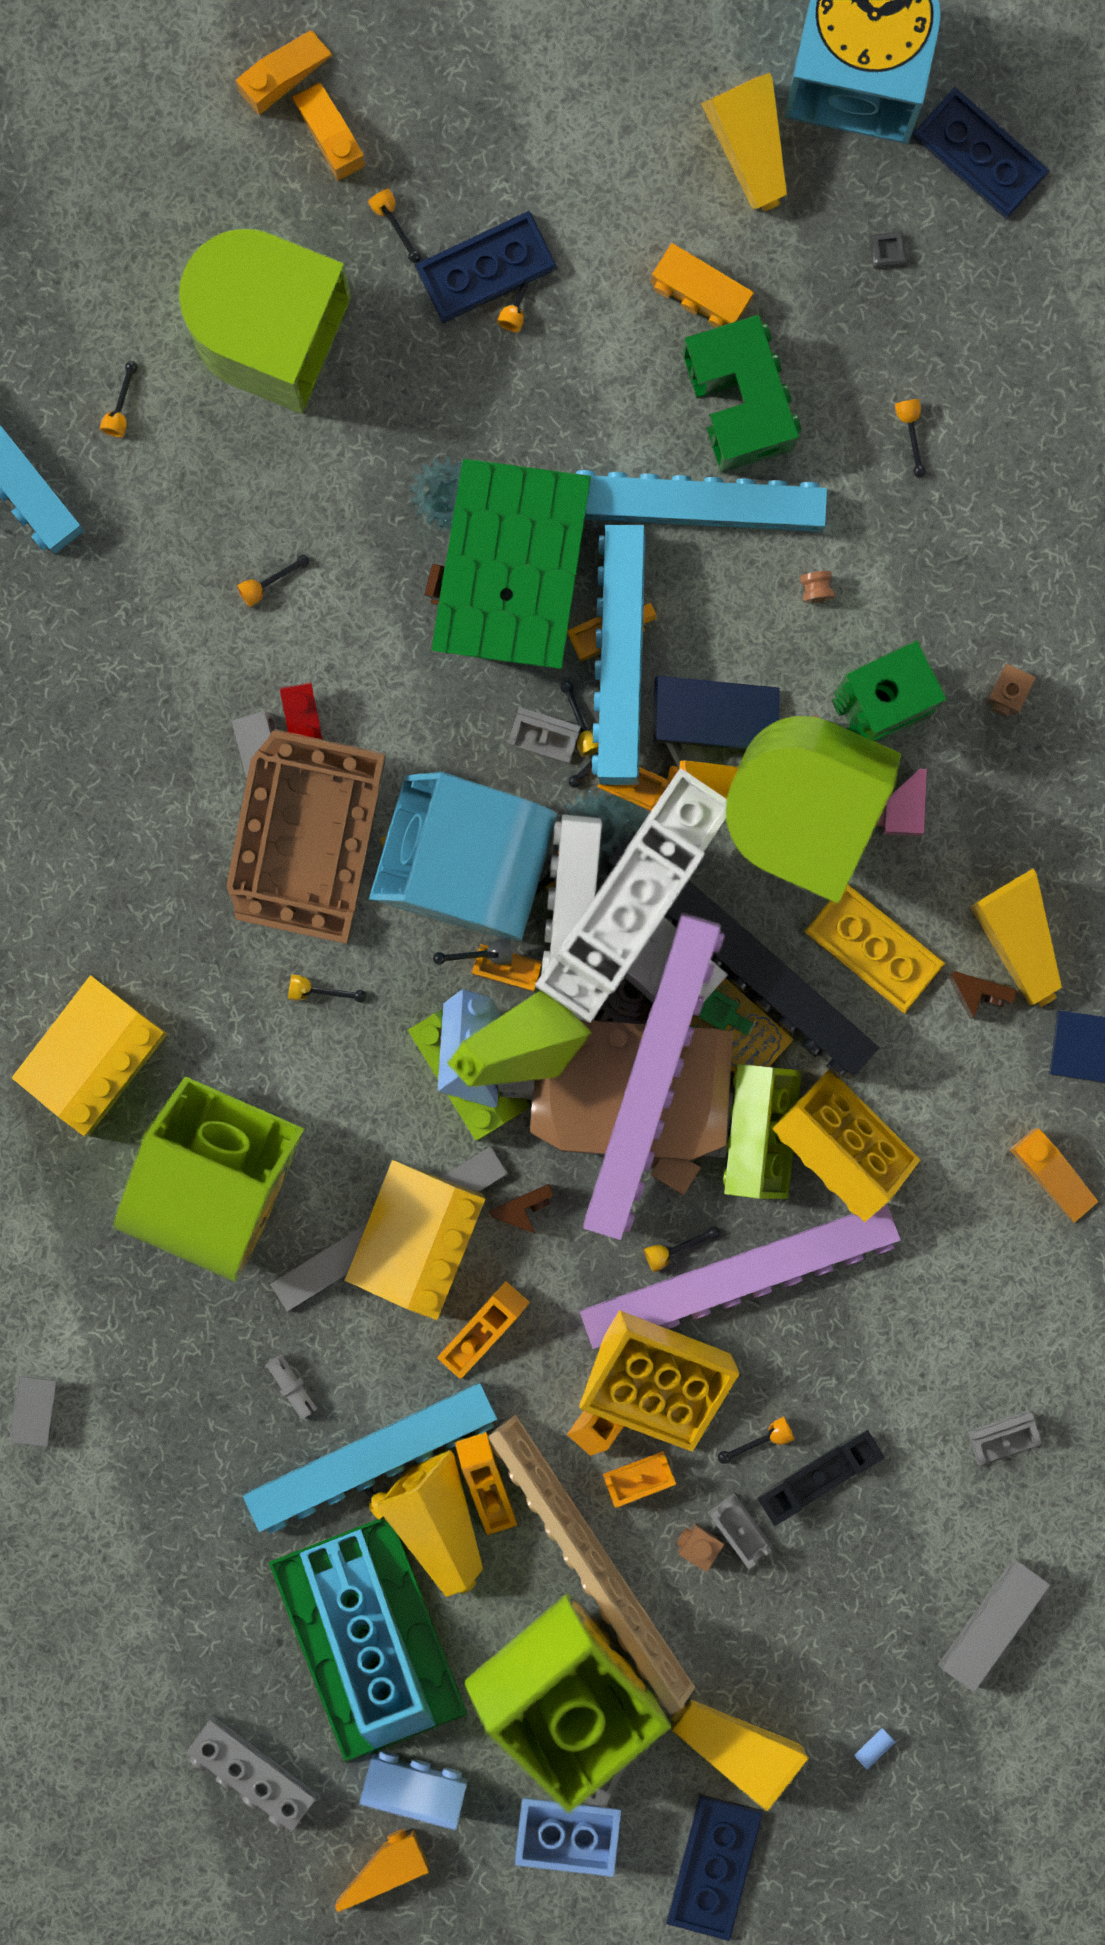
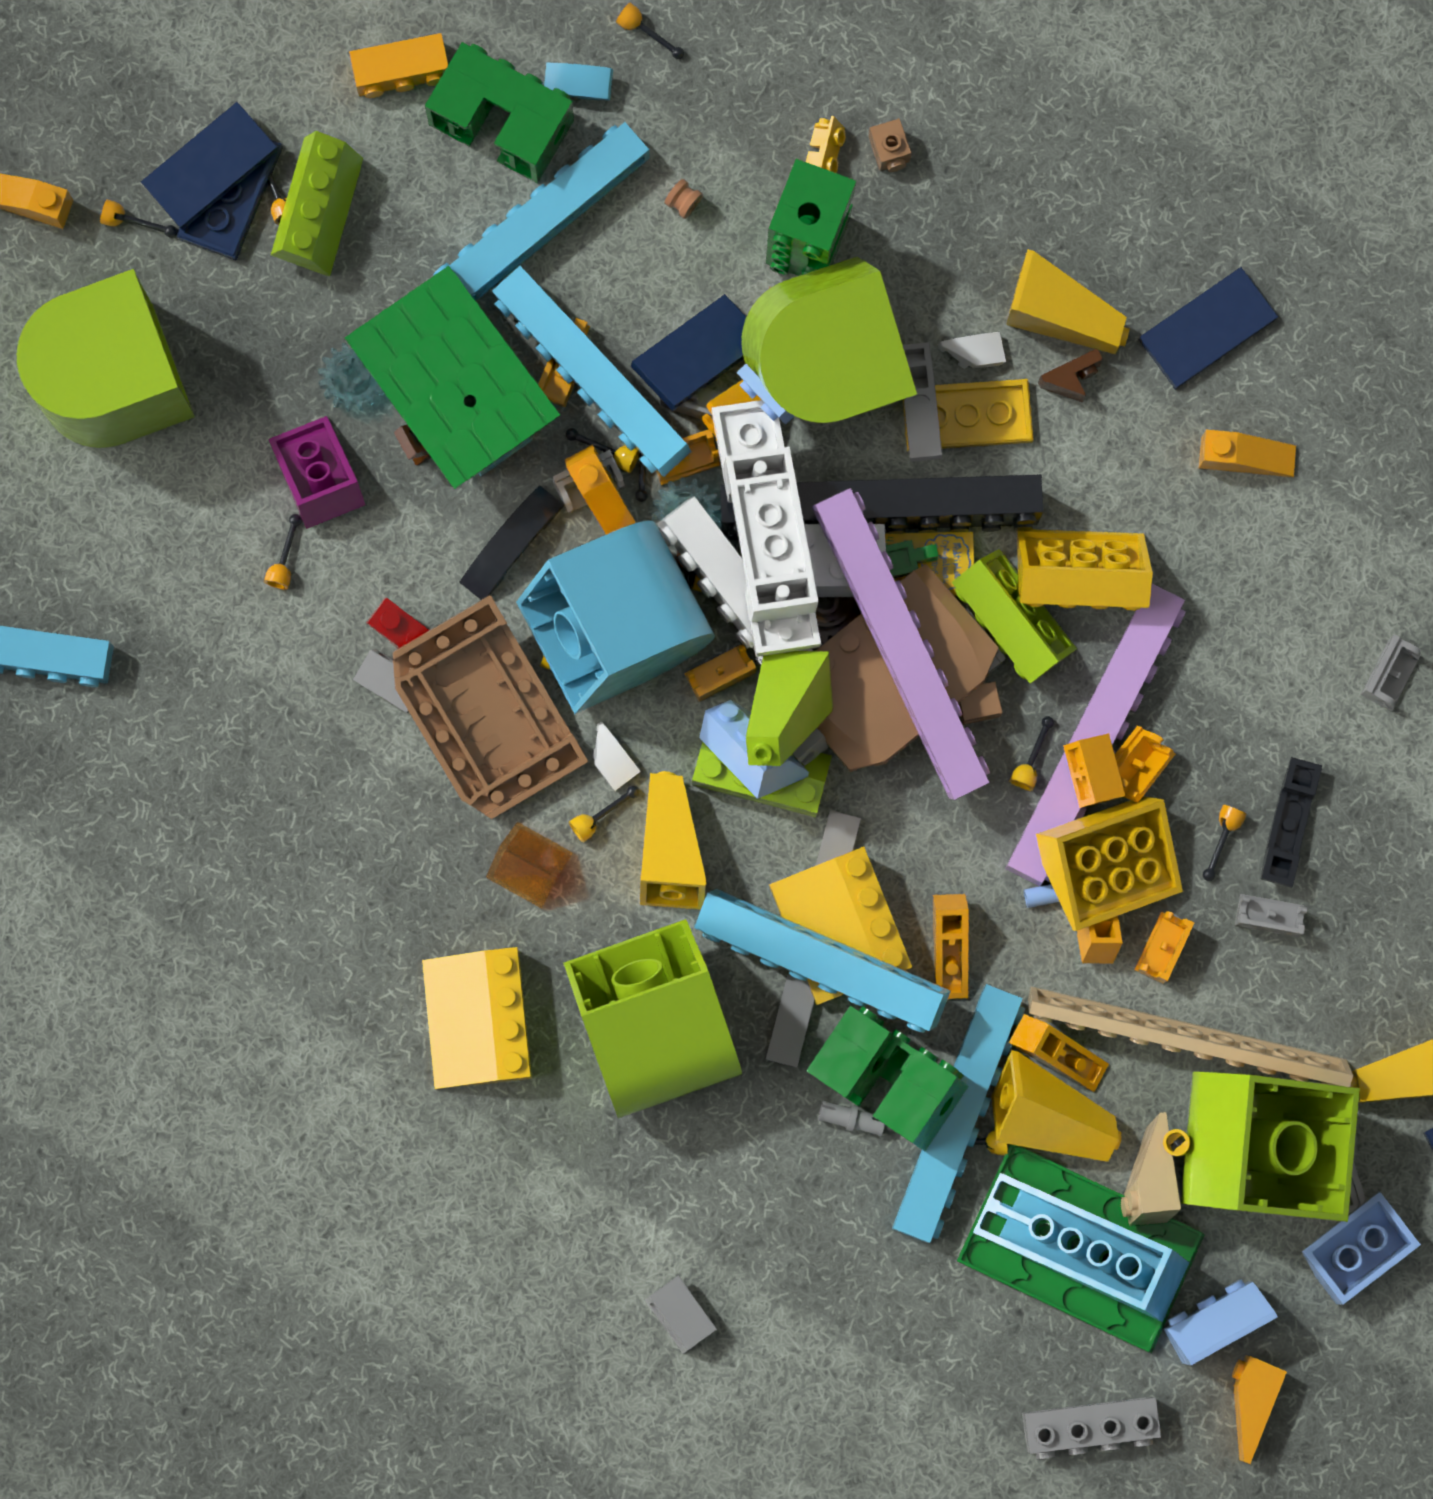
camera: 40 degrees left, 5 degrees down
(114, 421) = (62, 547): hinge -> none
(233, 978) = (528, 864): none -> clear orange slope
(341, 1067) = (671, 855): none -> yellow slope
(347, 1348) = (921, 1088): none -> green piece
(351, 540) = (317, 472): none -> magenta slope
(366, 958) = (612, 759): none -> white slope
(375, 1253) = (822, 960): none -> medium azure brick
(445, 726) = (510, 542): none -> black slope
(460, 1644) = (1152, 1186): none -> tan slope
(487, 233) = (209, 165): none -> dark blue tile
(498, 952) = (704, 664): hinge -> none
(505, 1635) = (1175, 1139): none -> yellow hinge
(514, 1212) = (892, 839): reddish brown slope -> none
(540, 337) = (317, 203): none -> lime slope
(542, 751) = (599, 490): none -> light orange slope
(583, 1354) = (1040, 896): none -> light blue piece
(699, 1546) = (1253, 953): medium nougat brick -> none
(708, 1303) = (1094, 770): none -> light orange hinge
(722, 780) = (753, 386): none -> light blue plate
(747, 1327) = (1141, 762): none -> light orange hinge
(823, 423) = (580, 80): none -> medium azure slope
(837, 918) = (921, 409): none -> light grey slope
(906, 808) = (902, 294): bright pink slope -> none
(927, 906) = (976, 350): none -> white slope
(971, 642) = (829, 137): none -> yellow hinge

